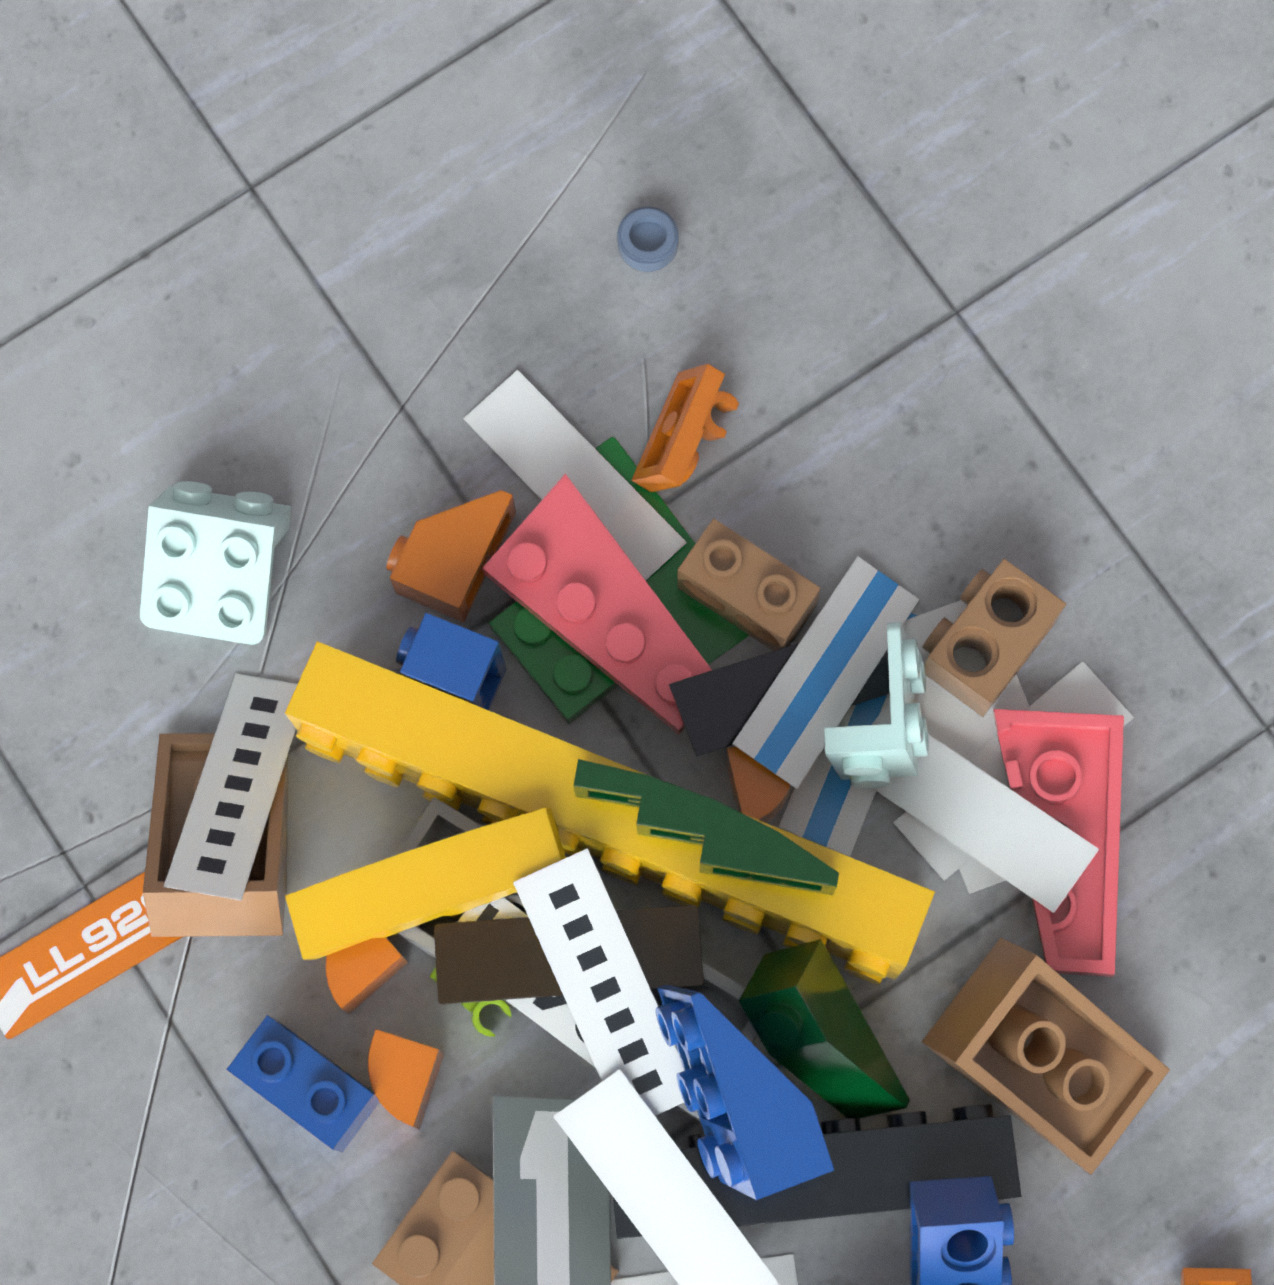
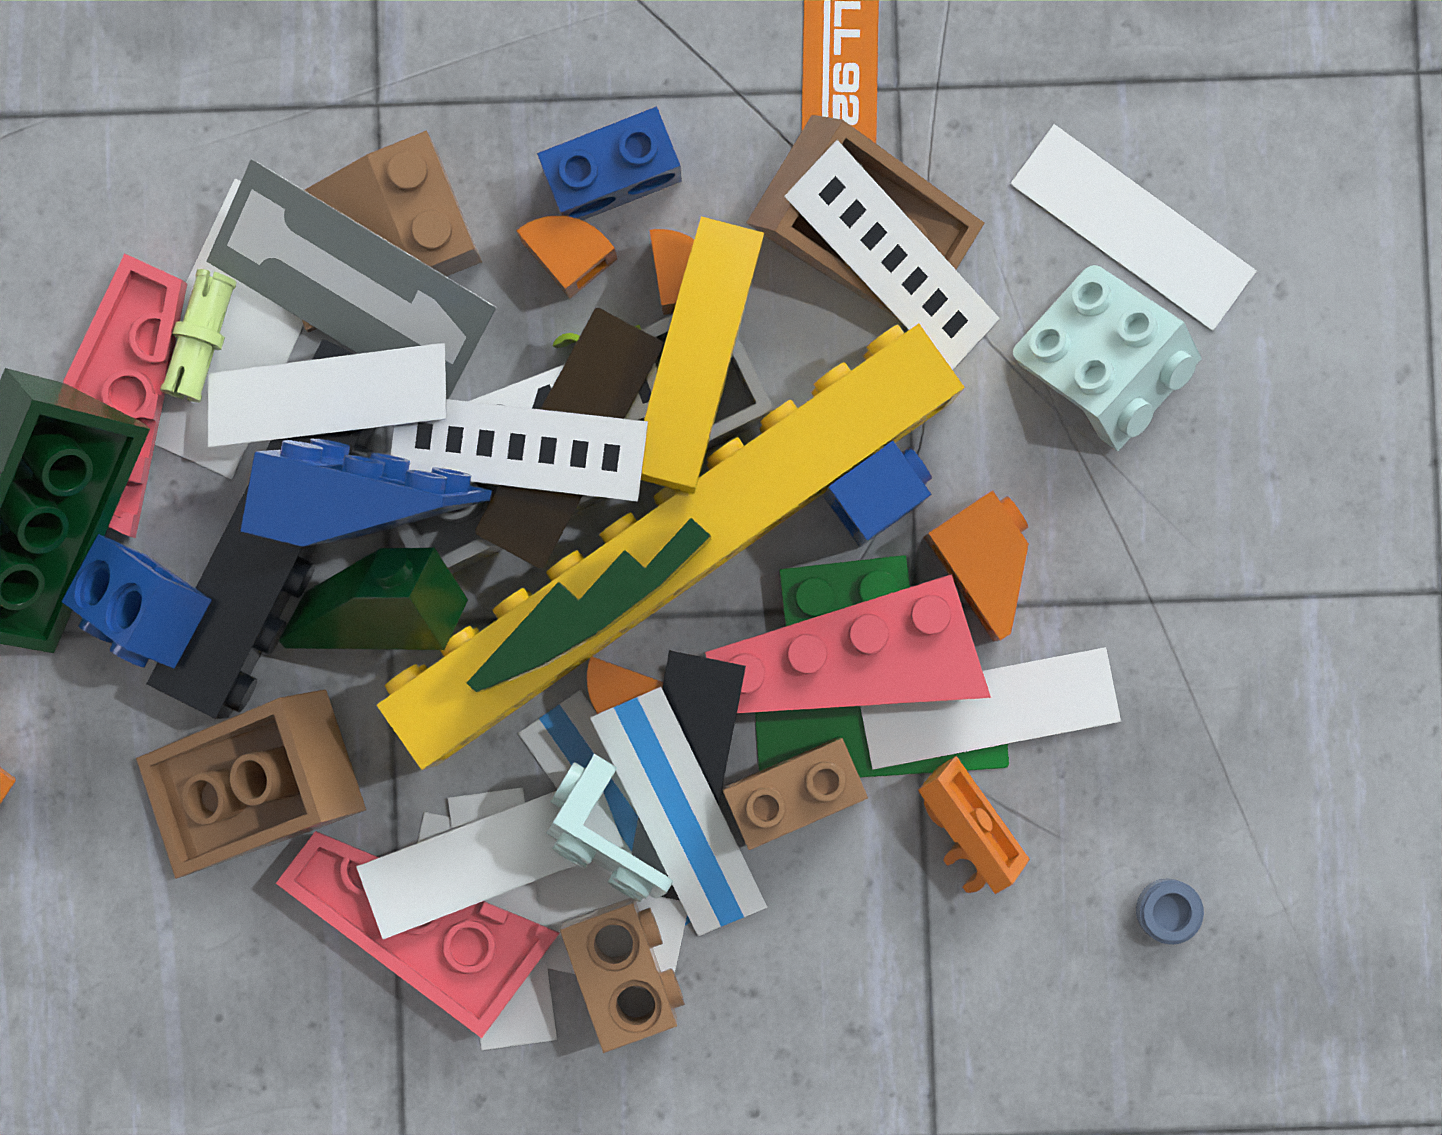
camera: 120 degrees right, 10 degrees up
(88, 612) = (1133, 227): none -> white sticker

